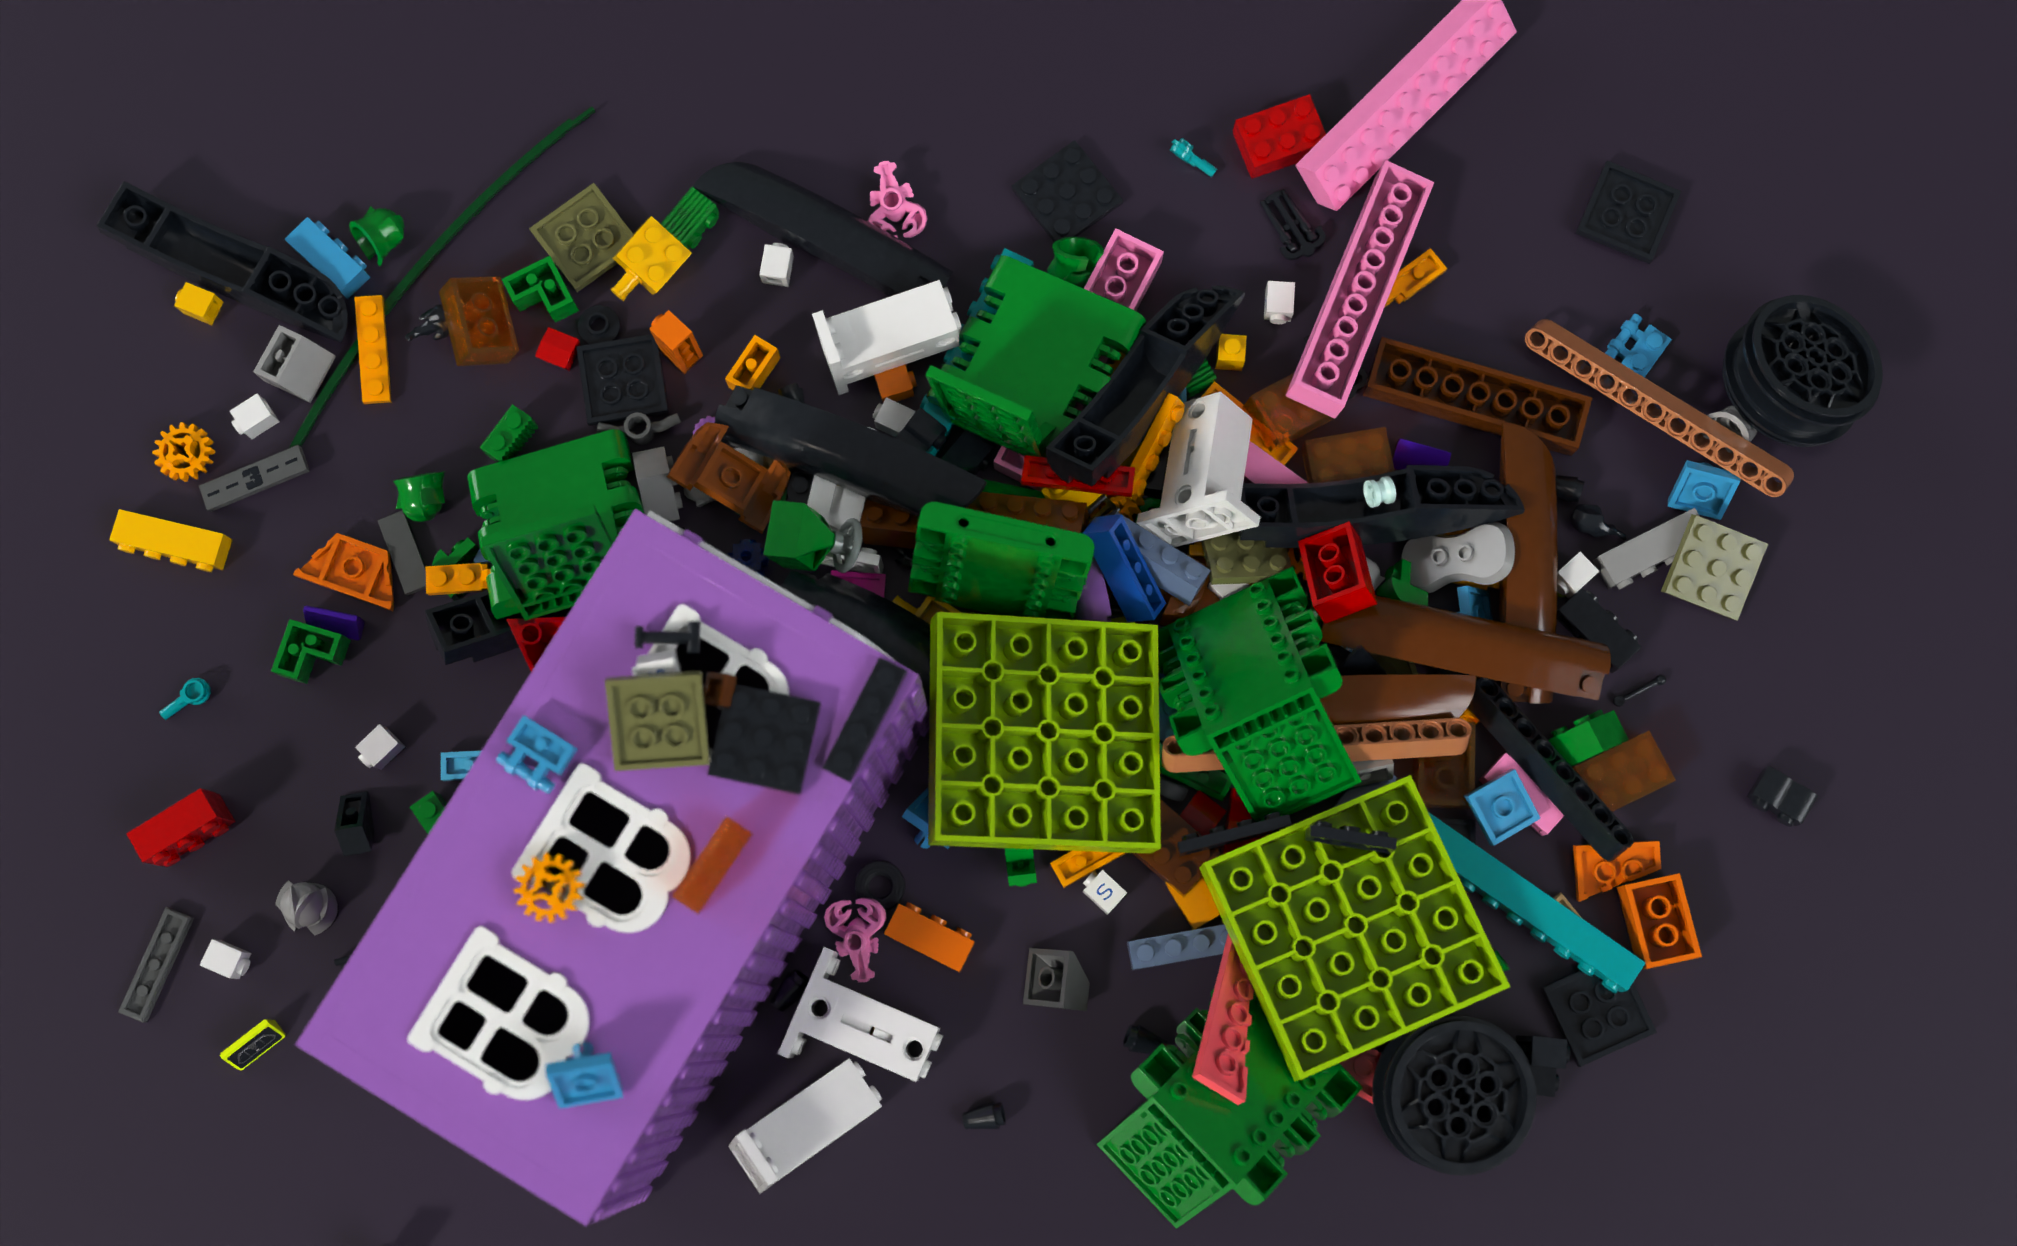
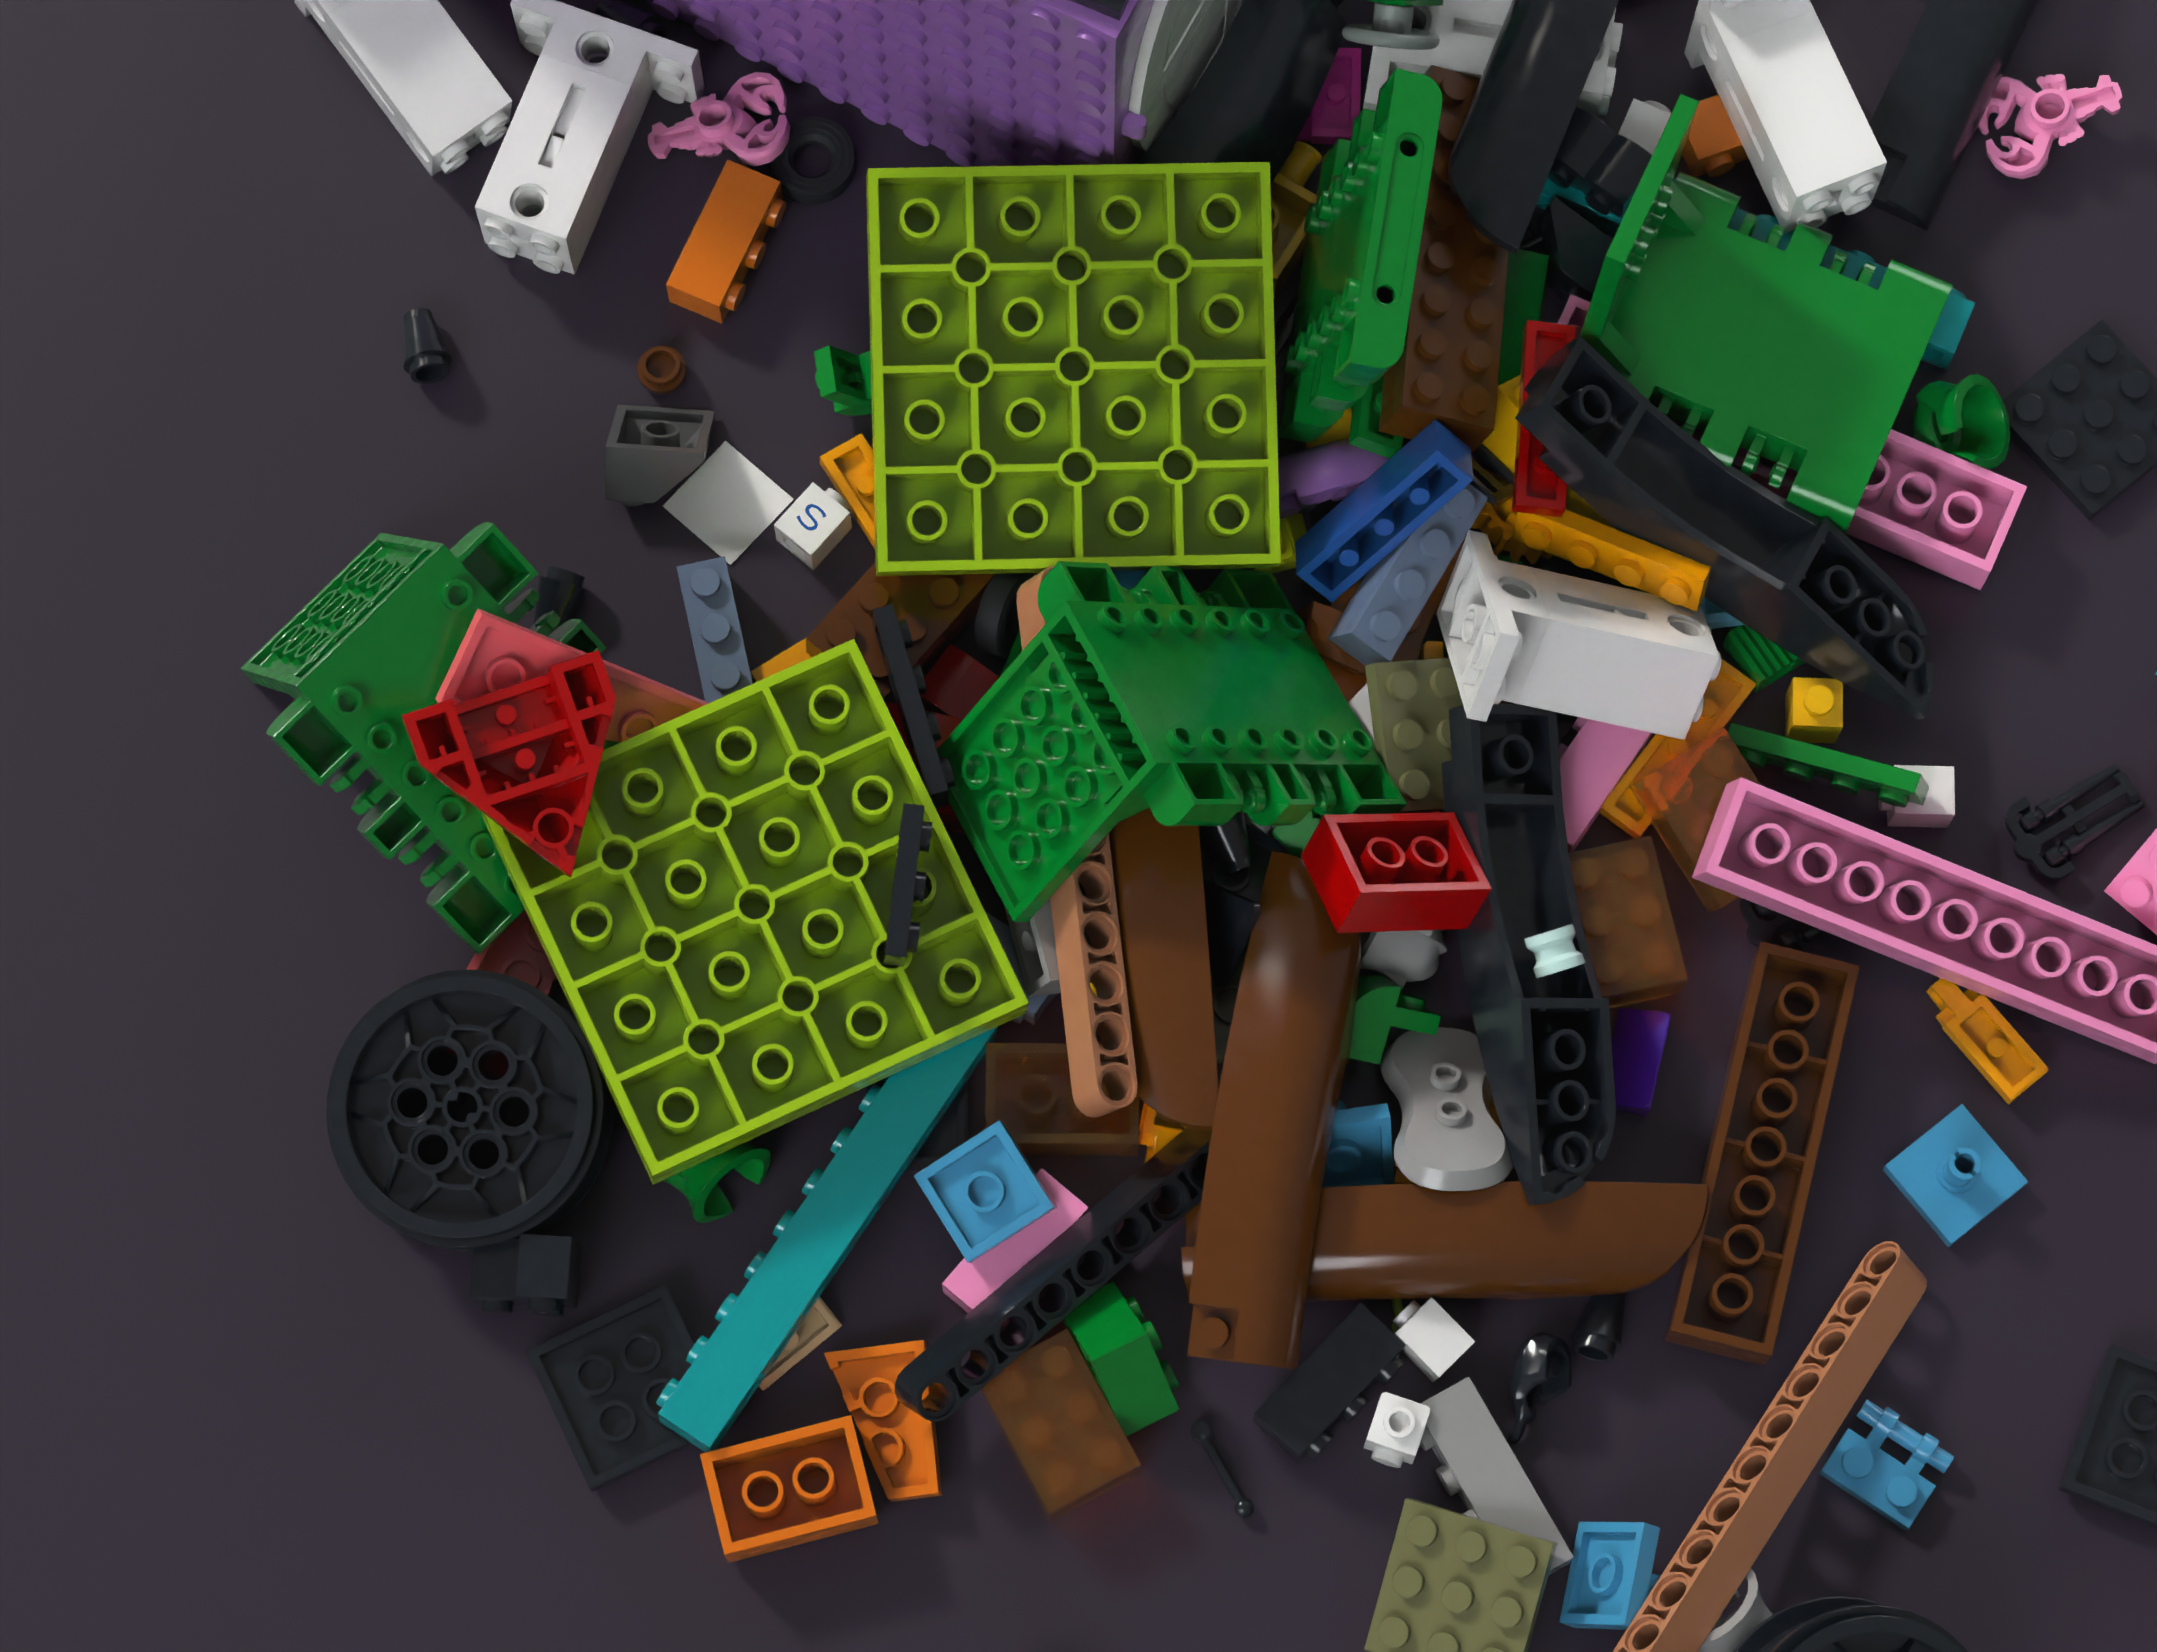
camera: 85 degrees right, 5 degrees down
(1004, 977) = (661, 369): none -> reddish brown plate
(1086, 938) = (728, 502): none -> white sticker
(1272, 335) = (1844, 770): none -> green plate
(1279, 1051) = (525, 752): none -> red wedge
(1483, 301) = (1955, 1175): none -> dark azure tile
(1626, 595) = (1396, 1430): none -> white bracket

